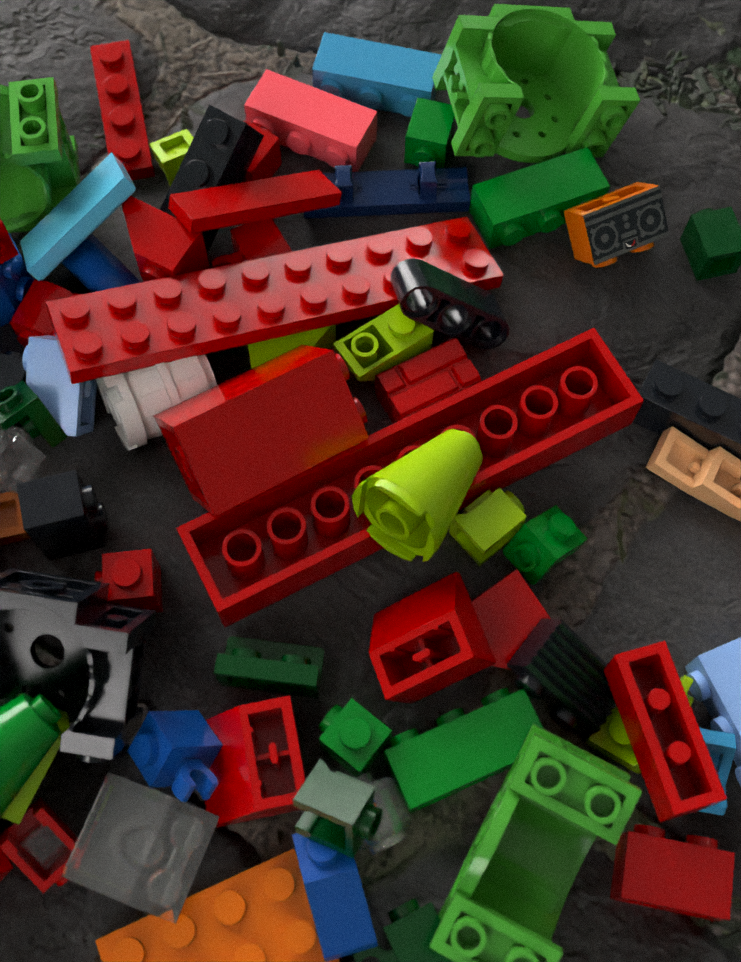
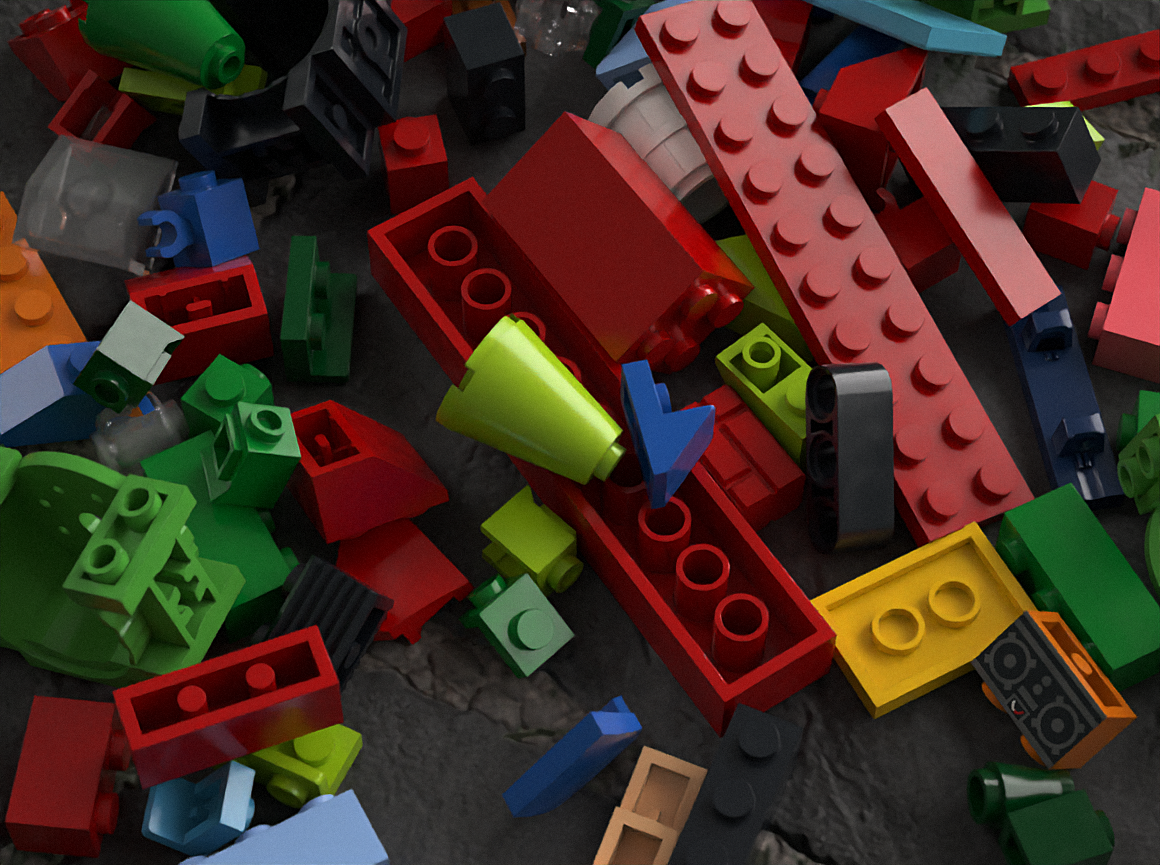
camera: 85 degrees right, 10 degrees down
(430, 711) = (251, 456): none -> green window
(457, 407) = (663, 440): none -> blue slope
(553, 288) = (921, 618): none -> yellow plate
(668, 502) = (574, 760): none -> blue slope
(677, 261) = (1010, 787): none -> dark green cone

